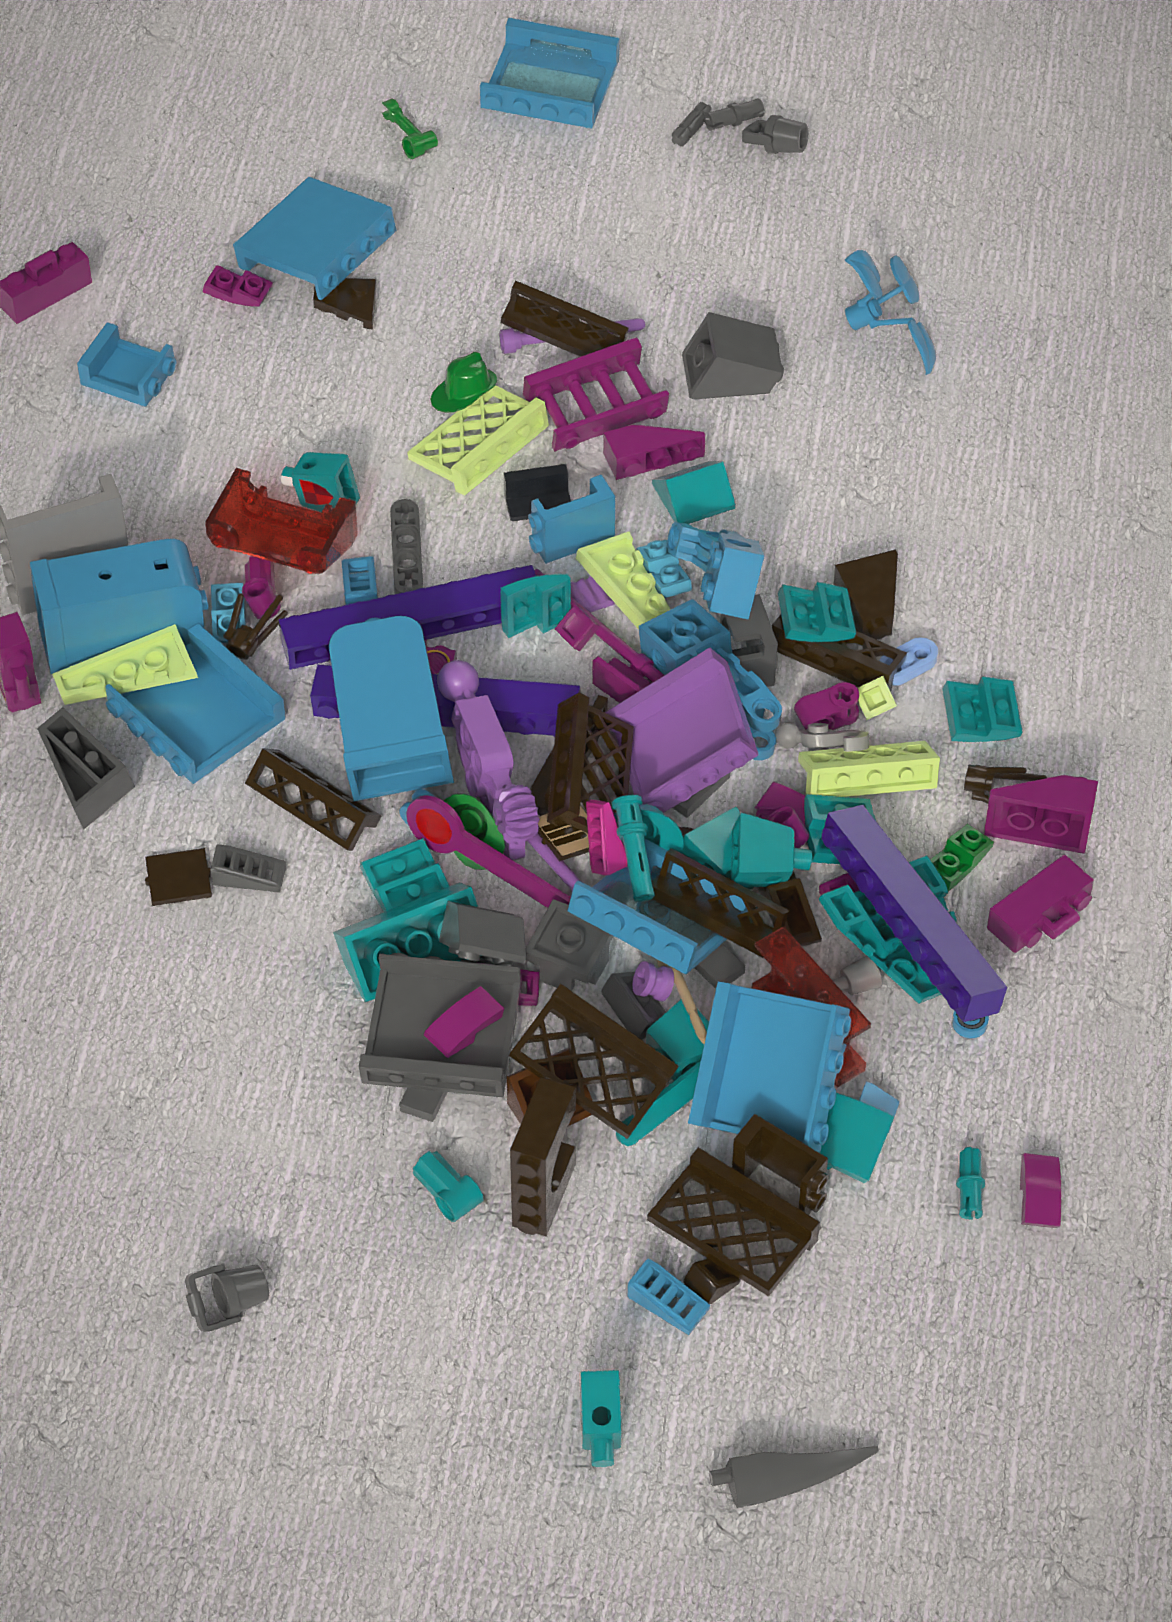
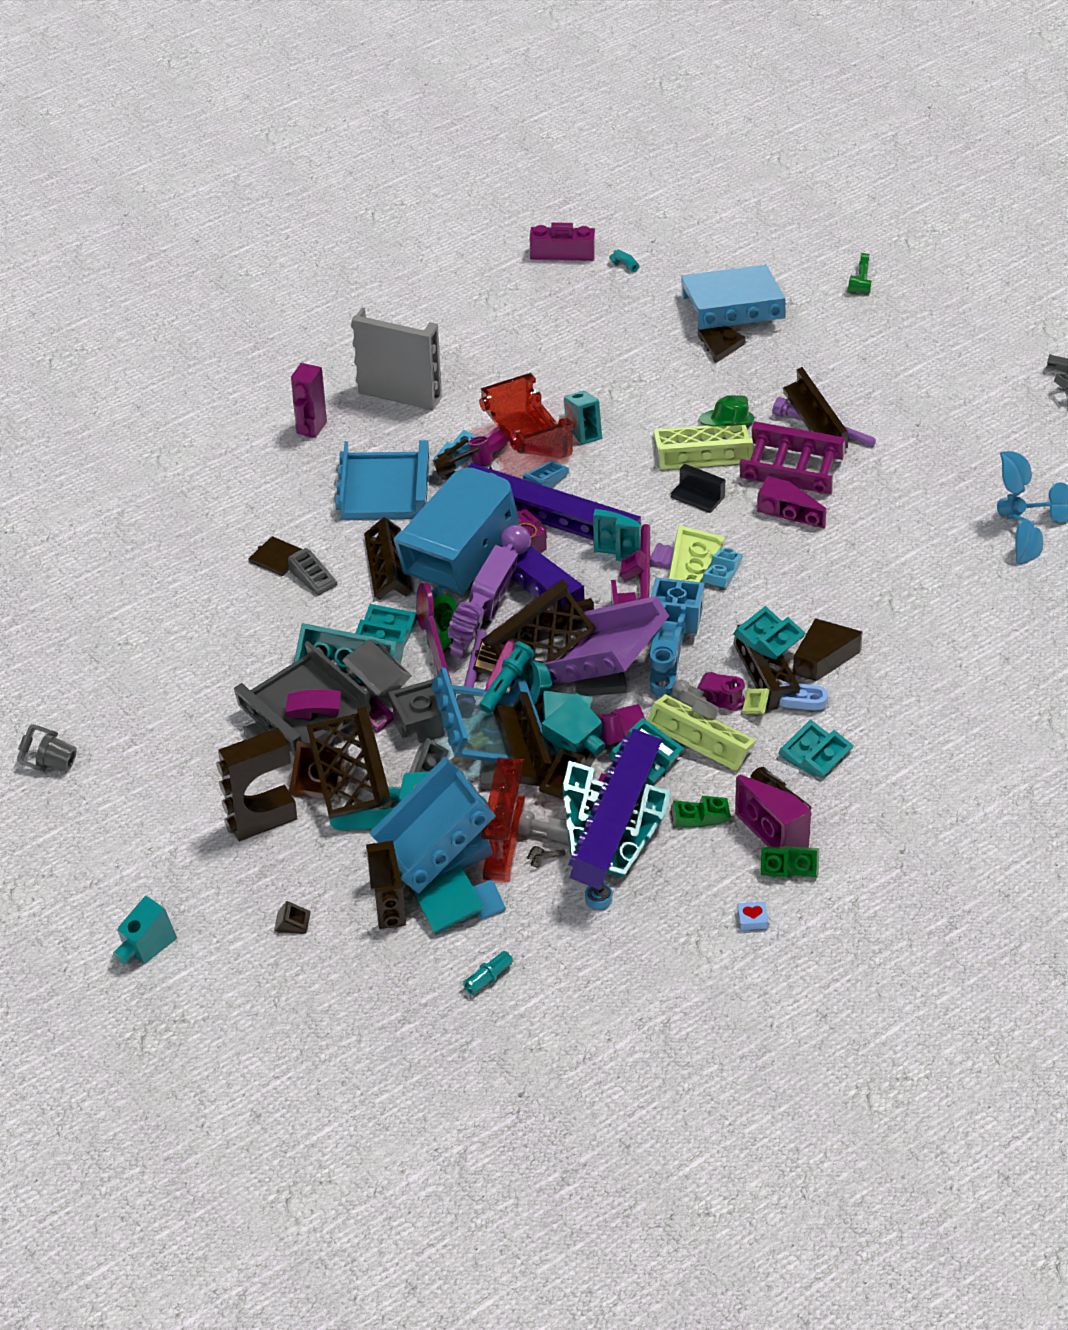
camera: 45 degrees right, 10 degrees down
(85, 767) = (288, 474): dark grey wedge -> none
(114, 598) = (392, 402): dark azure piece -> none
(125, 367) = (555, 305): dark azure panel -> none
(131, 667) = (373, 443): yellowish green wing -> none
(134, 259) = (627, 259): none -> teal arm
(237, 289) = (664, 301): magenta slope -> none
(404, 551) = (609, 461): dark grey beam -> none
(452, 1192) = (209, 784): teal piece -> none
(551, 73) = (985, 291): panel -> none
(573, 524) = (692, 508): dark azure panel -> none
(653, 981) = (440, 751): medium lavender wheel -> none
(663, 1279) = (255, 893): dark azure slope -> none
(690, 124) = (1035, 358): dark grey axle -> none
(696, 492) = (790, 541): teal slope -> none
(729, 563) = (728, 567): dark azure brick -> none
(731, 359) = (898, 484): dark grey slope -> none
(754, 1201) = (354, 888): dark brown fence -> none
(760, 640) = (718, 628): dark grey panel -> none
(775, 1475) = (195, 1029): dark grey piece -> none
(872, 1014) = (538, 854): none -> clear smoke hand
(1039, 902) = (714, 864): magenta piece -> none
(1041, 1190) = (519, 1002): magenta slope -> none
(1104, 846) = (789, 861): none -> green slope
(1129, 931) = (752, 916): none -> light blue tile

